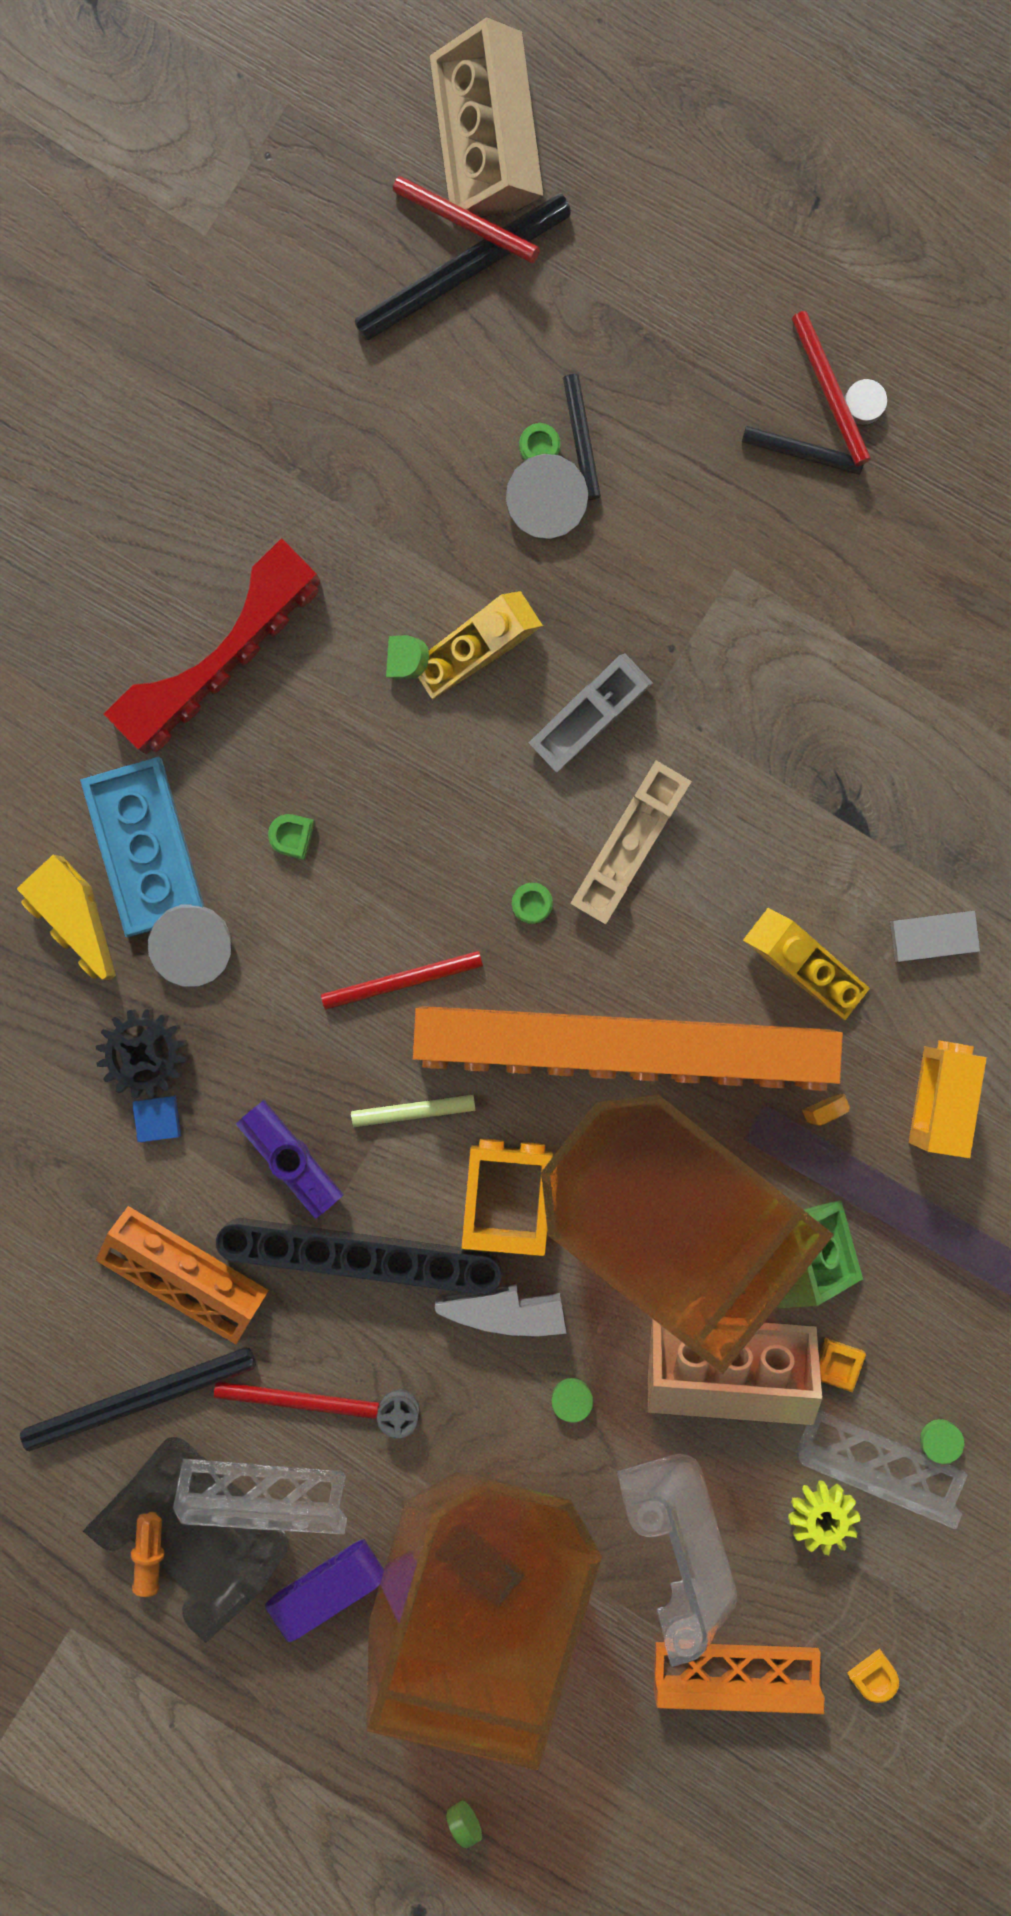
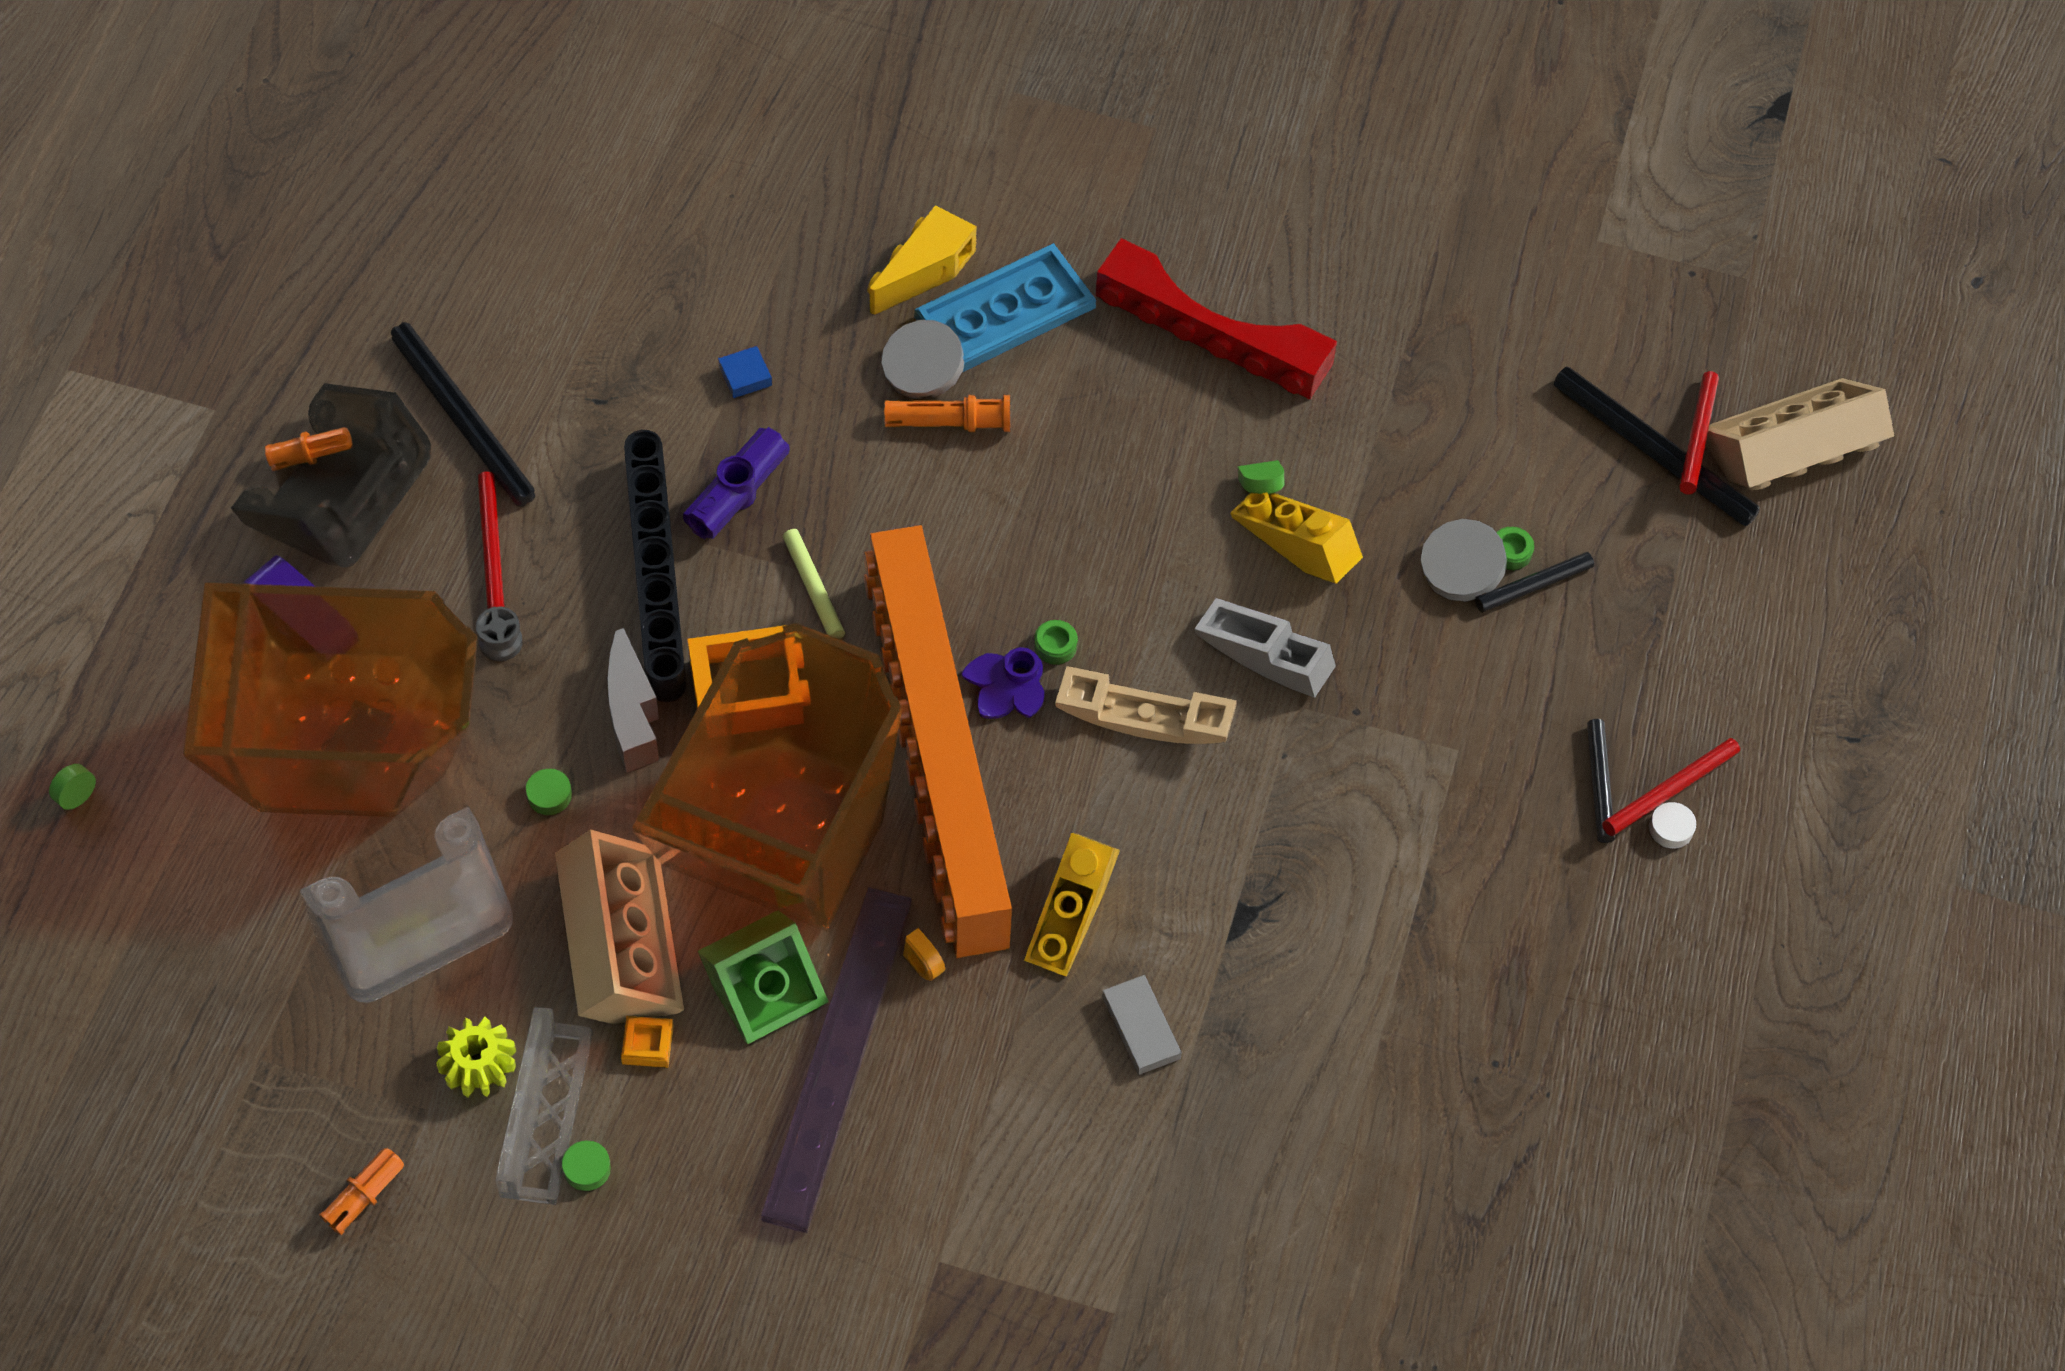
camera: 70 degrees right, 30 degrees down
(131, 1067) = (810, 342): black gear -> none
(183, 1271) = (596, 421): orange fence -> none
(255, 1512) = (377, 510): clear fence -> none
(262, 917) = (970, 413): none -> orange pin
(291, 835) = (1056, 424): bright green tile -> none
(401, 980) = (943, 547): red bar -> none
(570, 965) = (1003, 687): none -> dark purple plate
(742, 1693) = (262, 1020): orange fence -> none
(875, 1678) = (302, 1162): light orange tile -> none
(921, 1636) = (362, 1190): none -> orange axle
(947, 1099) = (970, 1055): light orange window -> none

